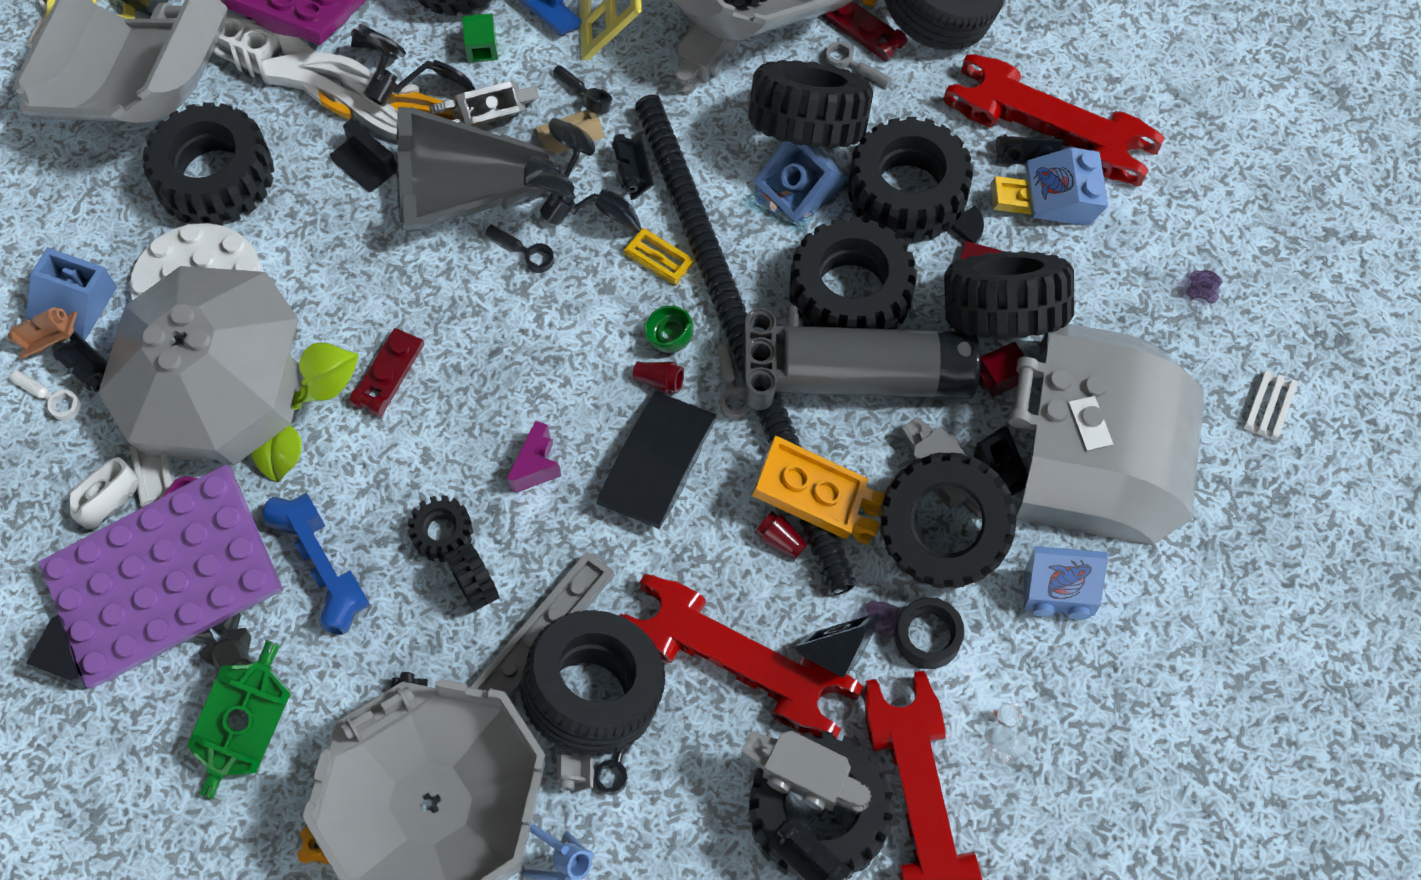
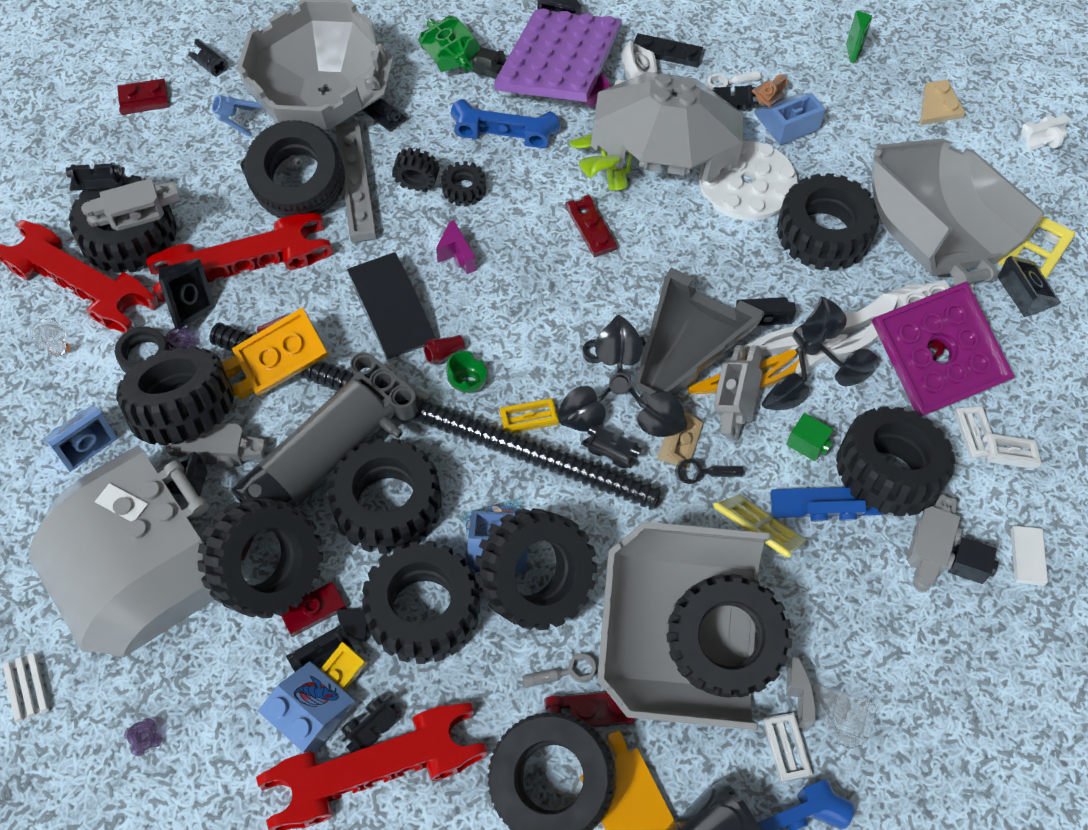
camera: 130 degrees right, 5 degrees down
(45, 493) = (671, 50): none -> black plate
(1017, 228) = (319, 649): none -> black hinge

